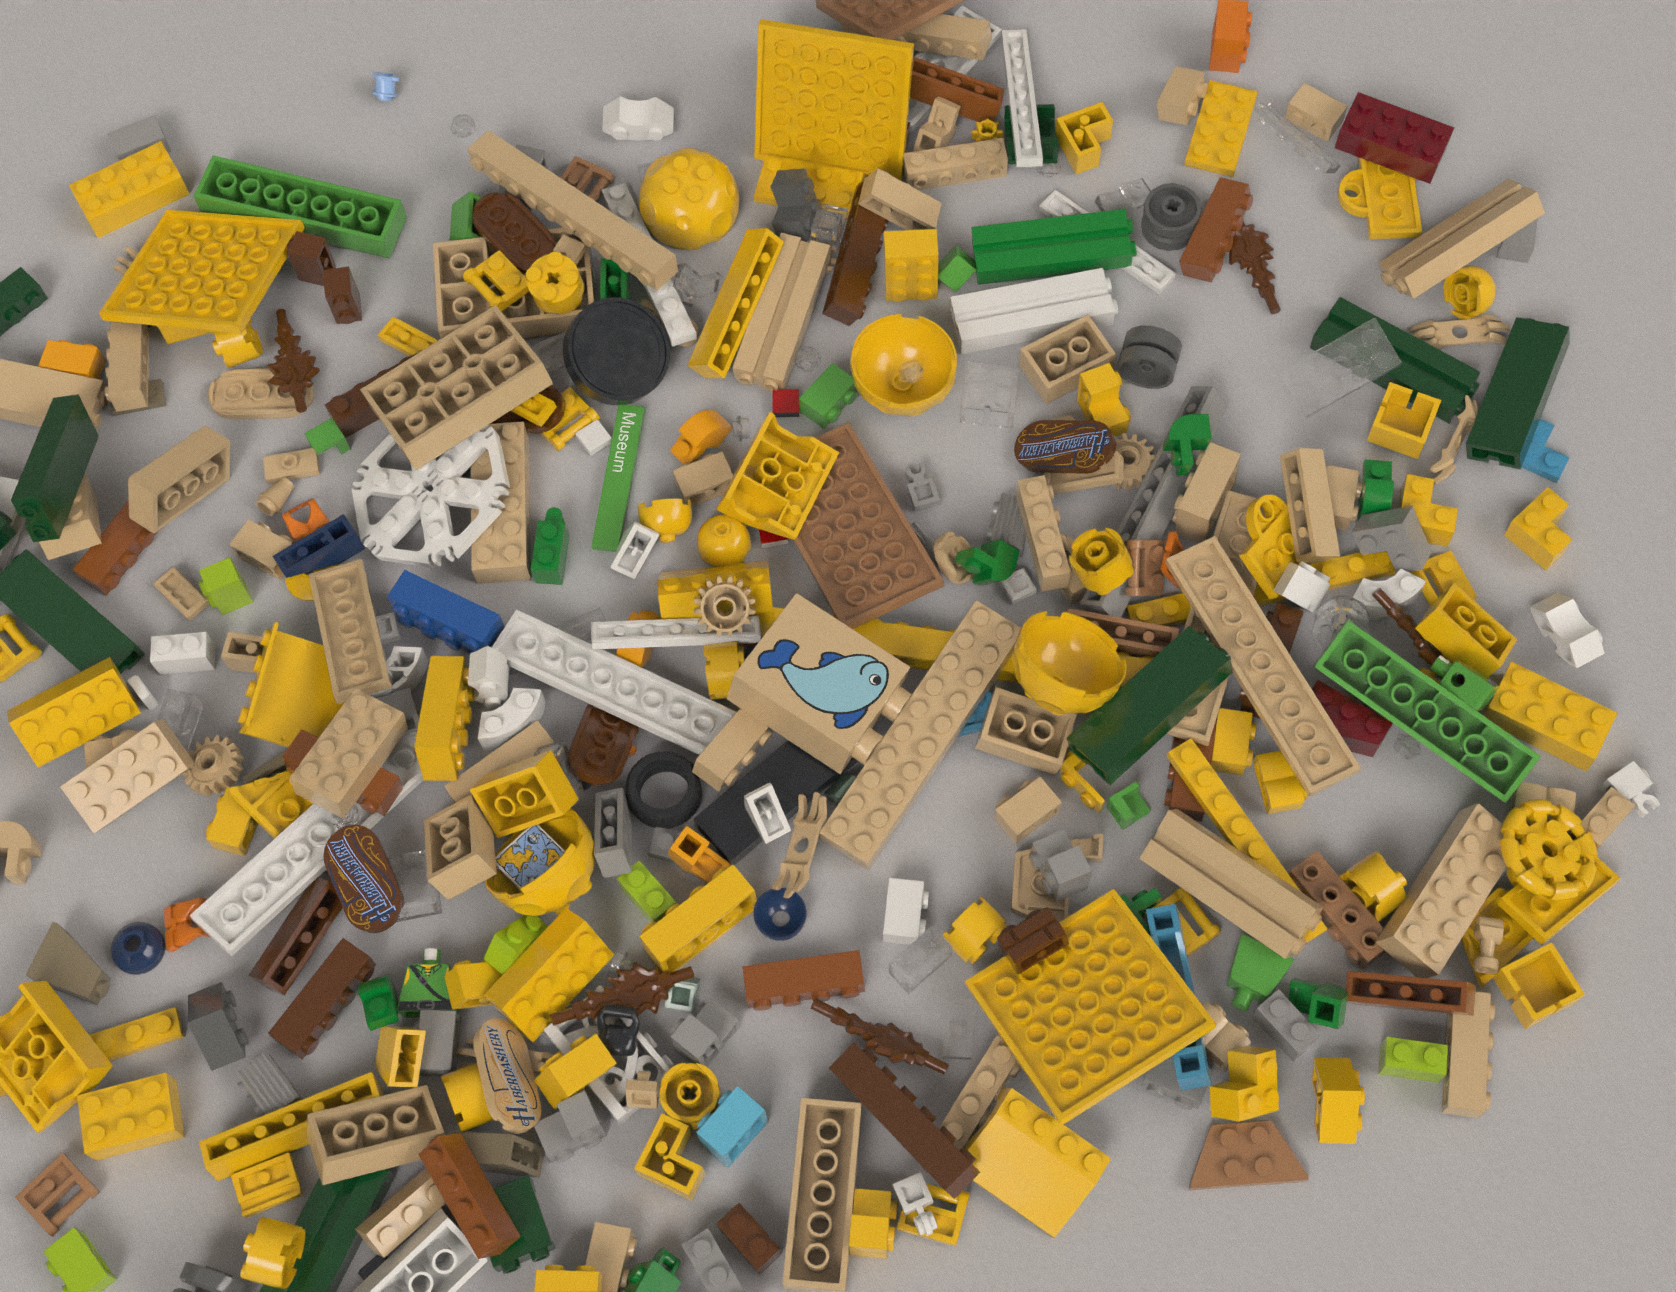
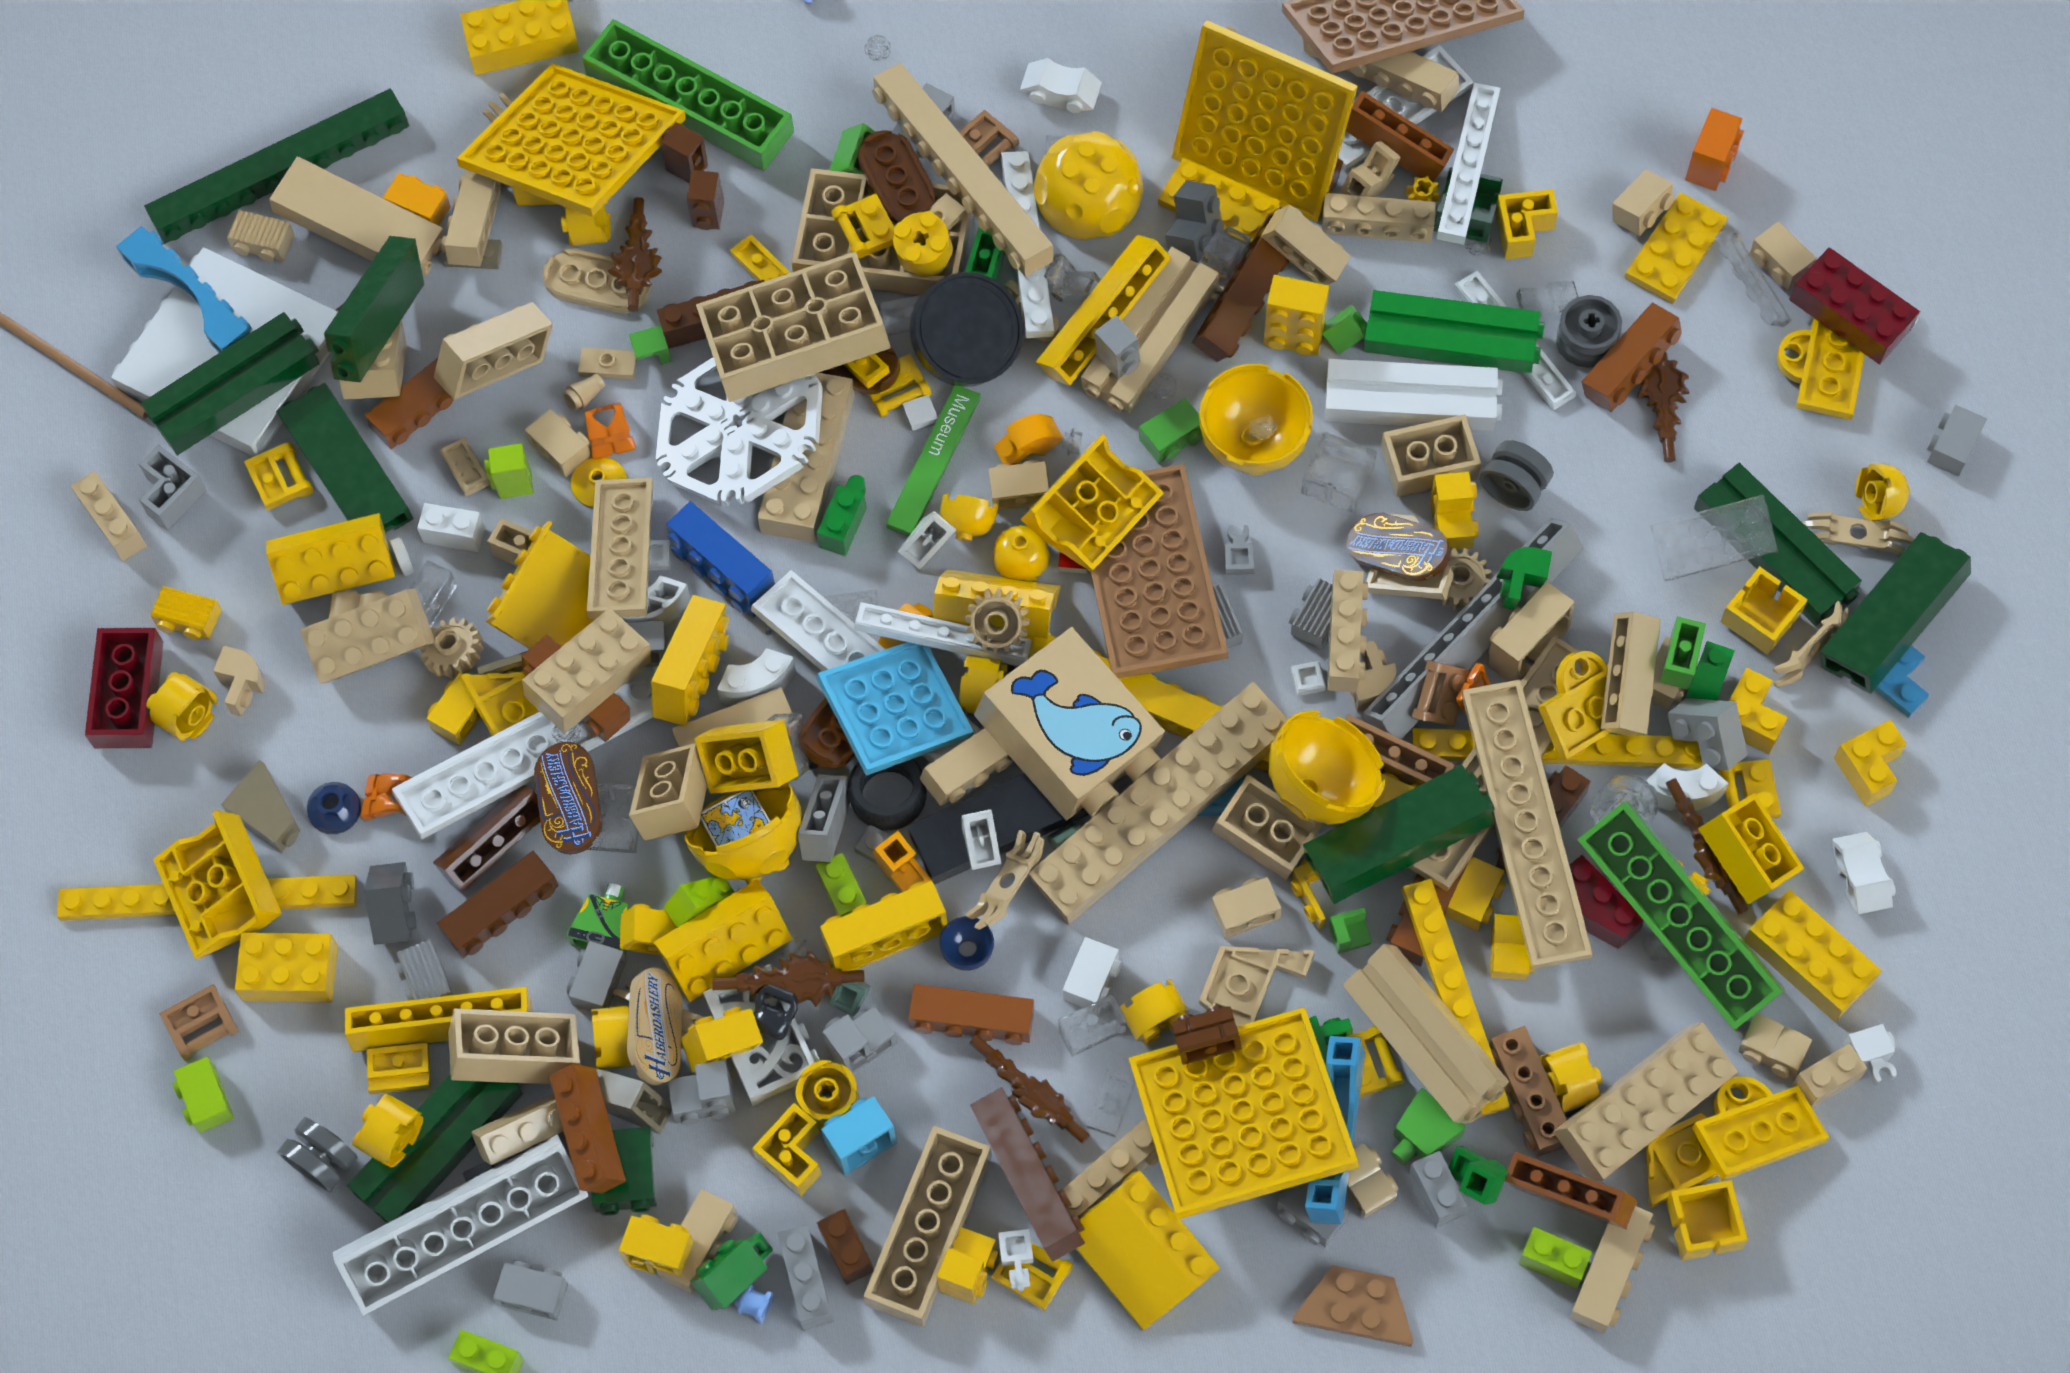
camera: 15 degrees right, 0 degrees up
(320, 549) = (614, 457): dark blue slope -> none
(379, 1002) = (551, 921): green brick -> none
(400, 1051) = (558, 975): yellow torso -> none
(489, 676) = (745, 630): white brick -> none
(642, 1092) = (780, 1077): tan tile -> none
(649, 710) = (894, 706): none -> medium azure plate
(760, 331) = (1117, 347): none -> light grey brick
(785, 403) = (1126, 427): red tile -> none
(945, 553) = (1250, 632): tan tile -> none
(990, 563) = (1285, 649): green brick -> none
(1061, 864) = (1259, 970): light grey brick -> none
(1101, 560) = (1394, 674): yellow brick -> none
(1250, 1087) = (1381, 1238): yellow brick -> none
(1303, 585) = (1596, 755): white brick -> none
(1337, 1100) = (1464, 1272): yellow brick -> none
(1350, 475) = (1682, 653): none -> bright green brick
(1461, 238) = (1886, 433): tan brick -> none
(1477, 687) = (1738, 906): bright green torso -> none
(1489, 933) = (1672, 1156): tan leg -> none
(1555, 836) = (1772, 1076): yellow plate -> none

